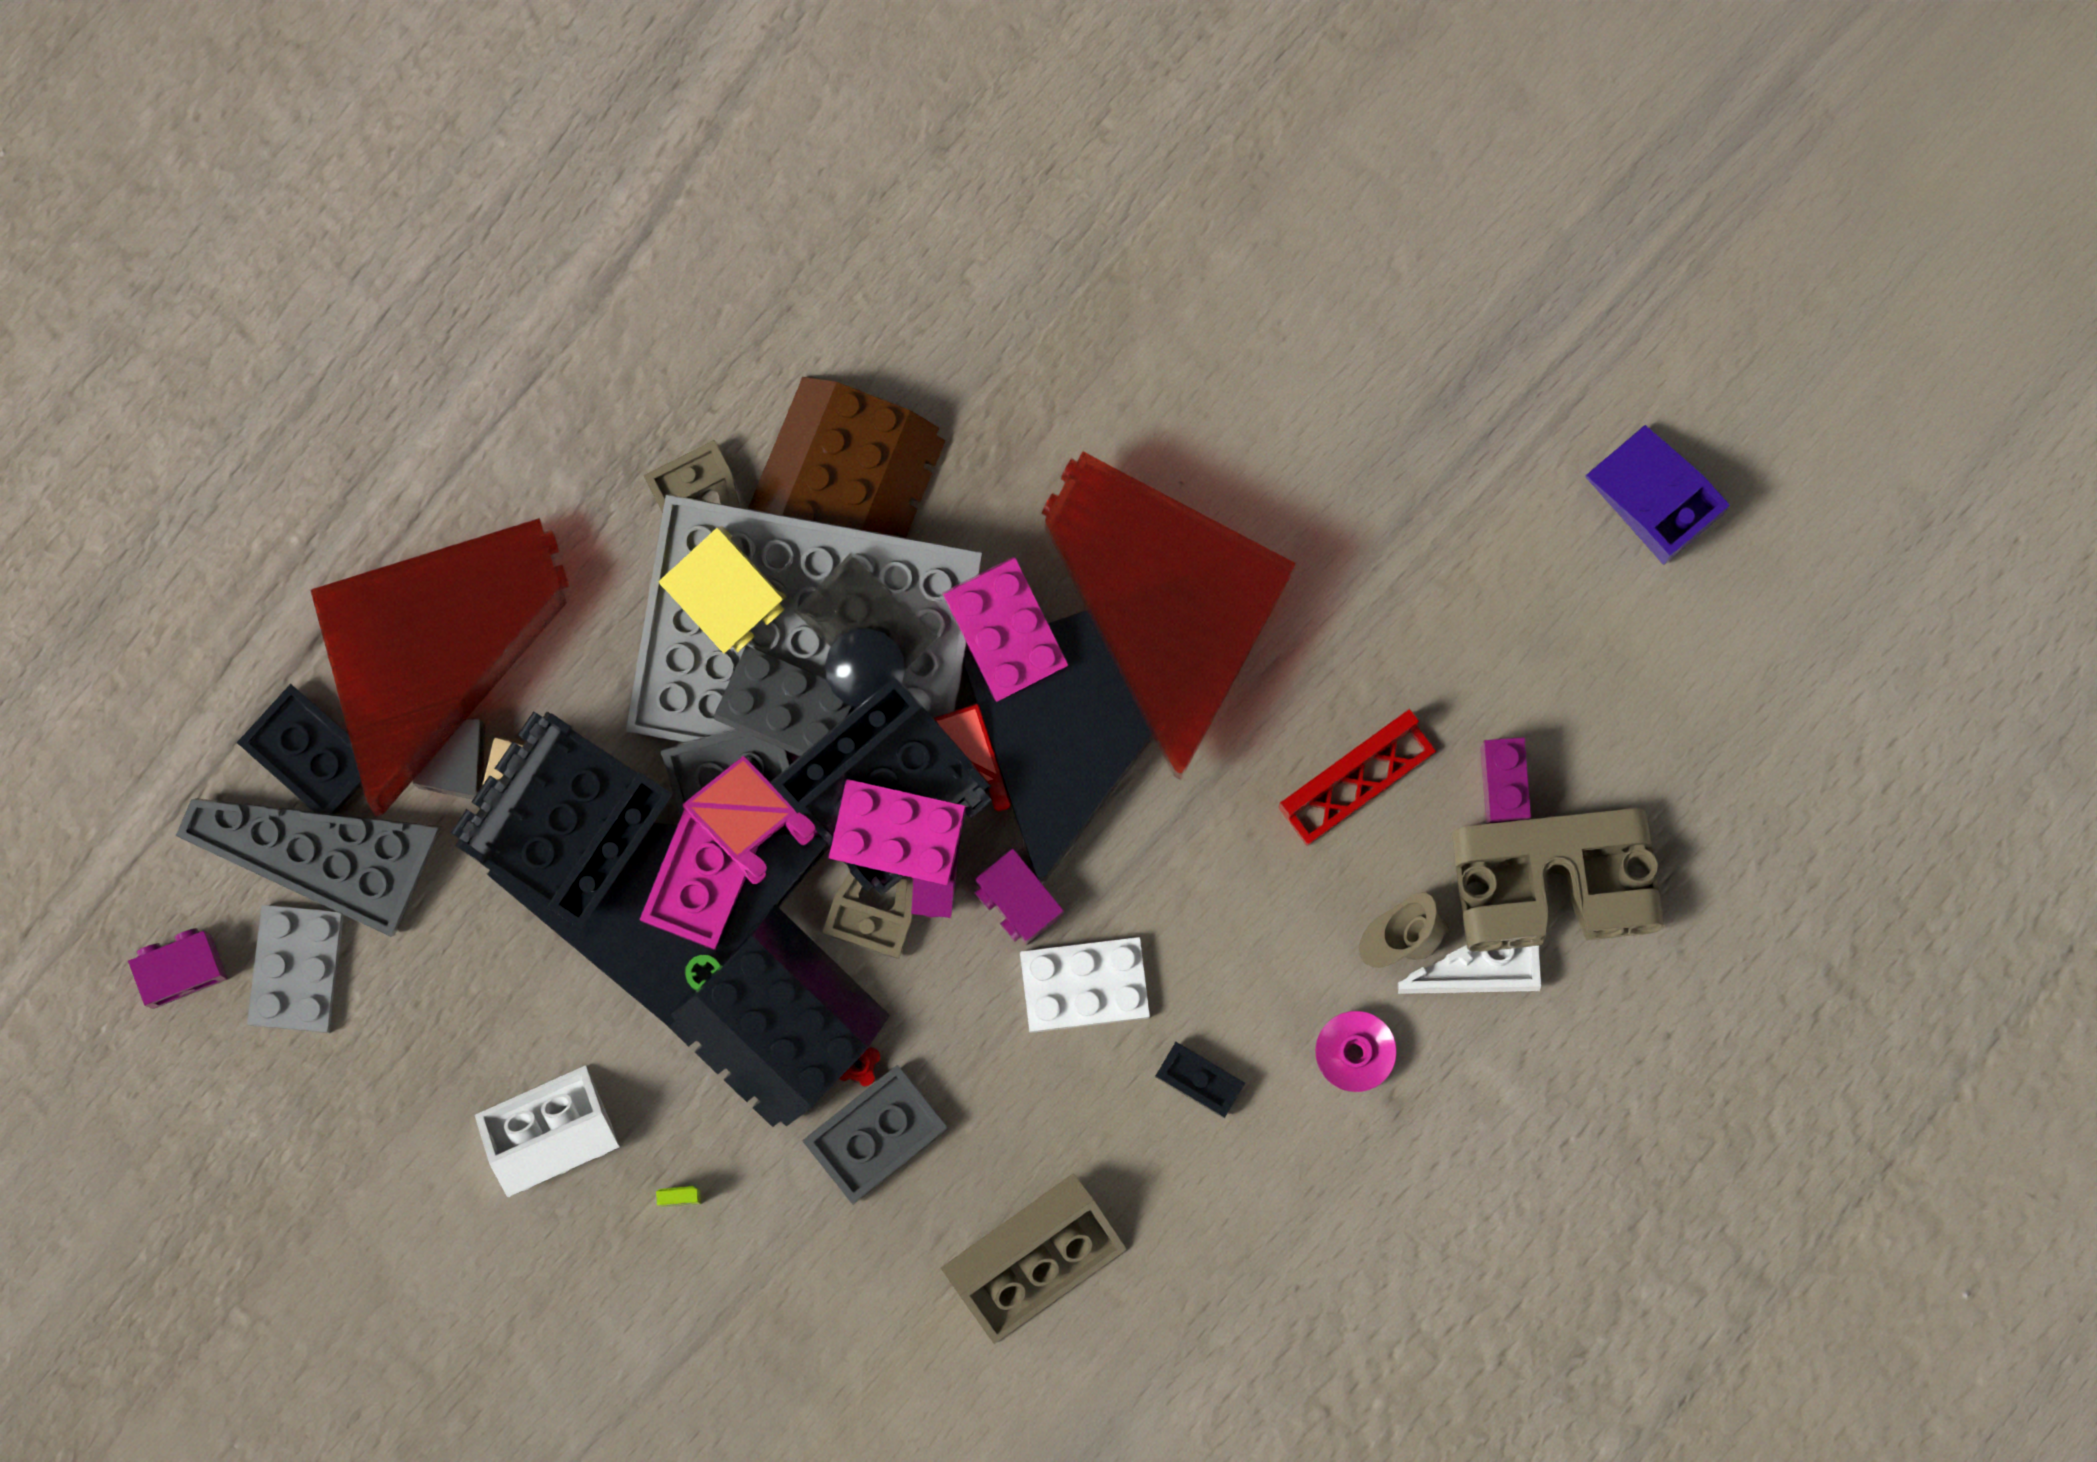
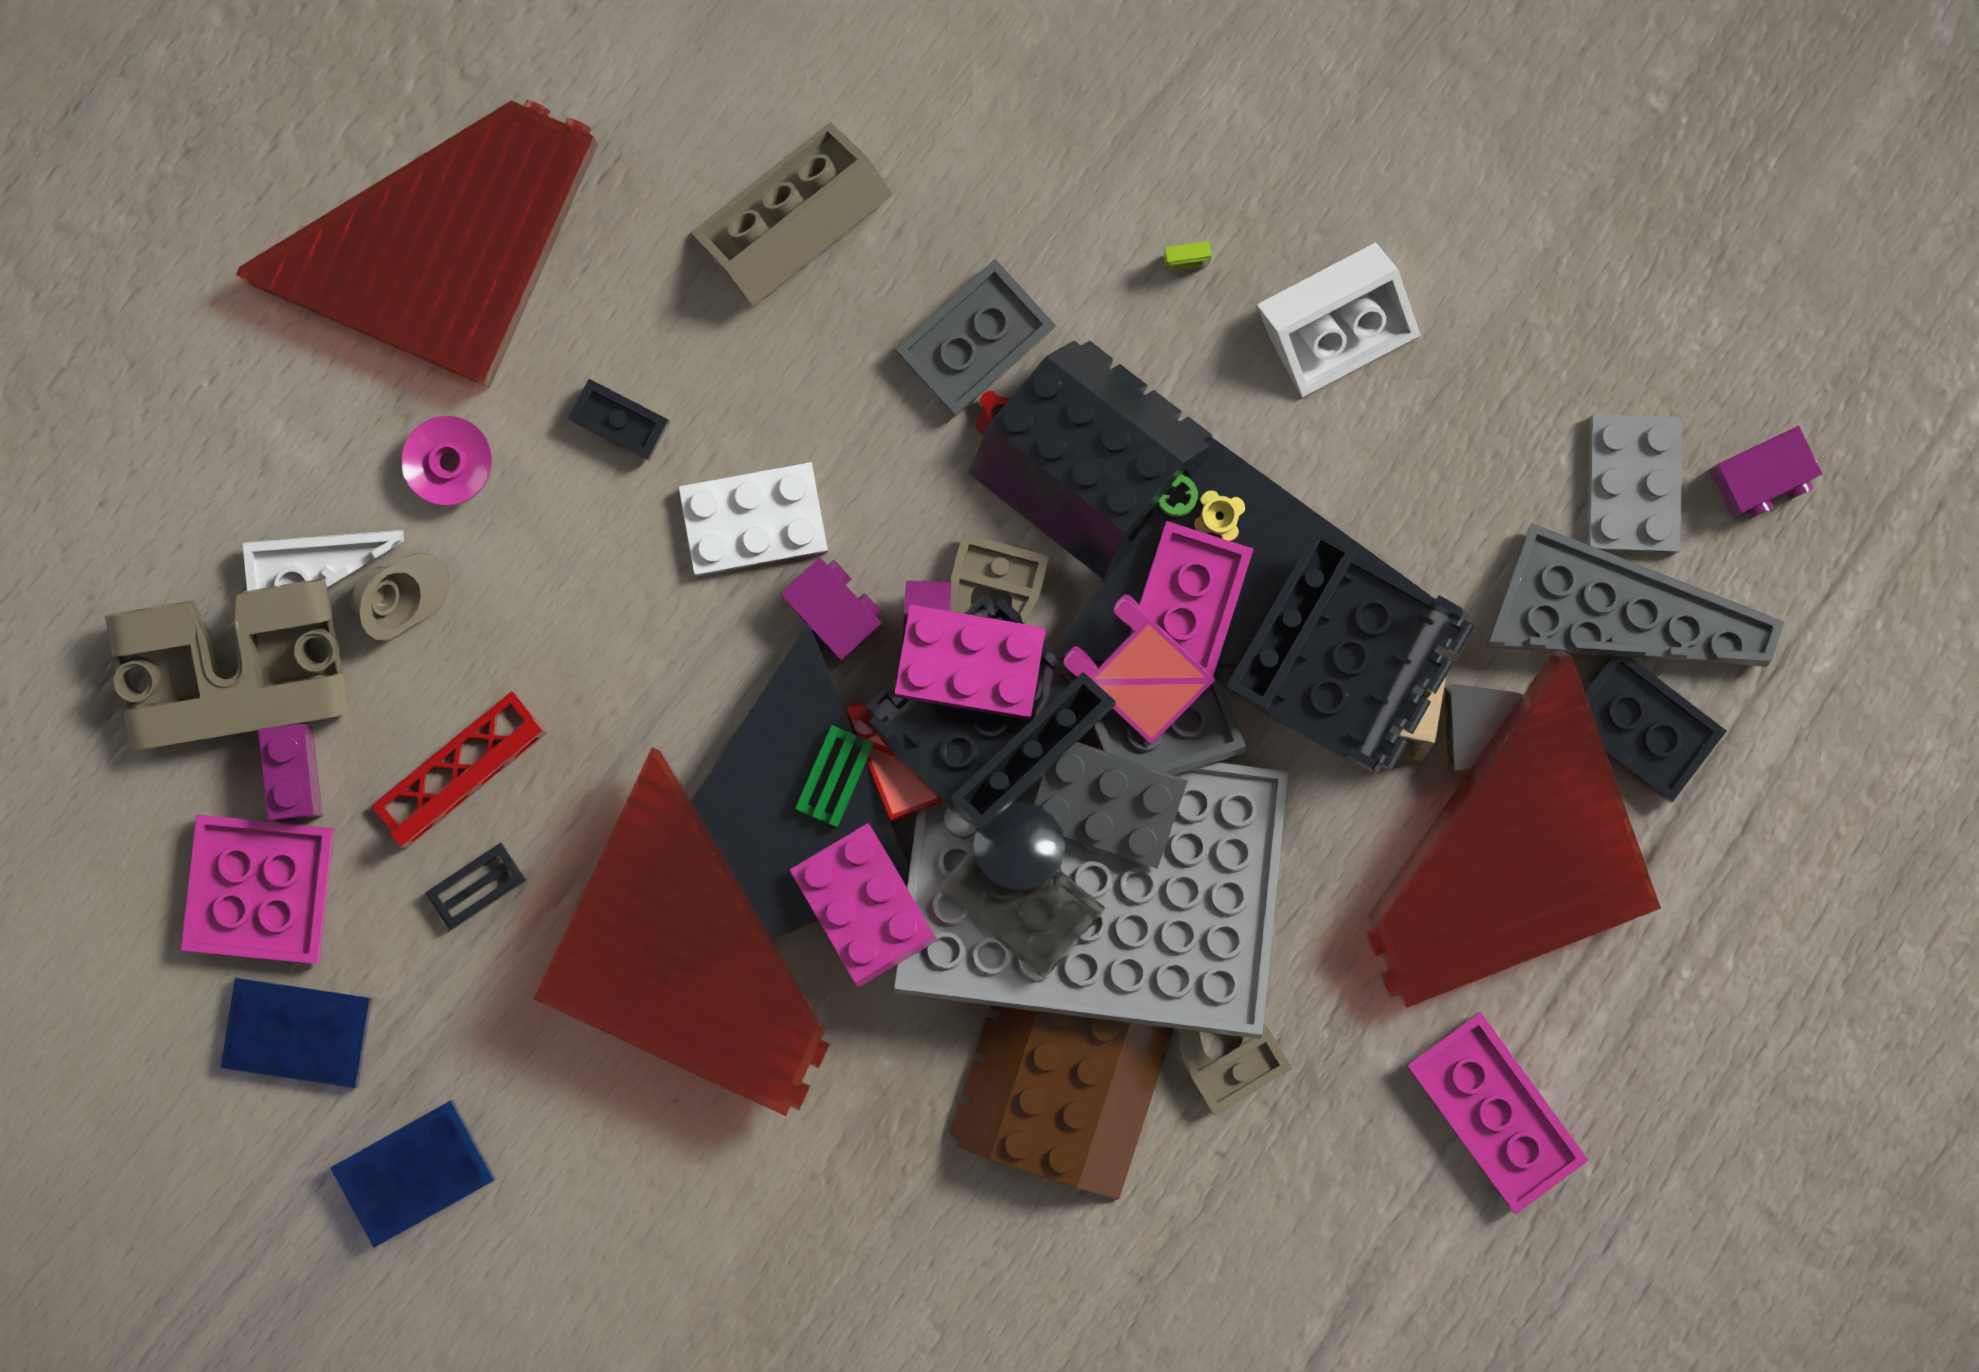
camera: 170 degrees right, 5 degrees up
(469, 429) = (1497, 1112): none -> dark pink plate
(656, 957) = (1229, 507): none -> light yellow plate
(723, 591) = (1188, 925): light yellow panel -> none
(1039, 714) = (849, 740): none -> green tile
(1318, 693) = (444, 908): none -> black tile
(1349, 1247) = (443, 245): none -> clear red slope
(1411, 433) = (413, 1173): none -> clear blue plate
(1509, 560) = (296, 1032): none -> clear blue plate
(1538, 683) = (258, 889): none -> dark pink plate
(1657, 493) = (126, 1117): dark purple slope -> none

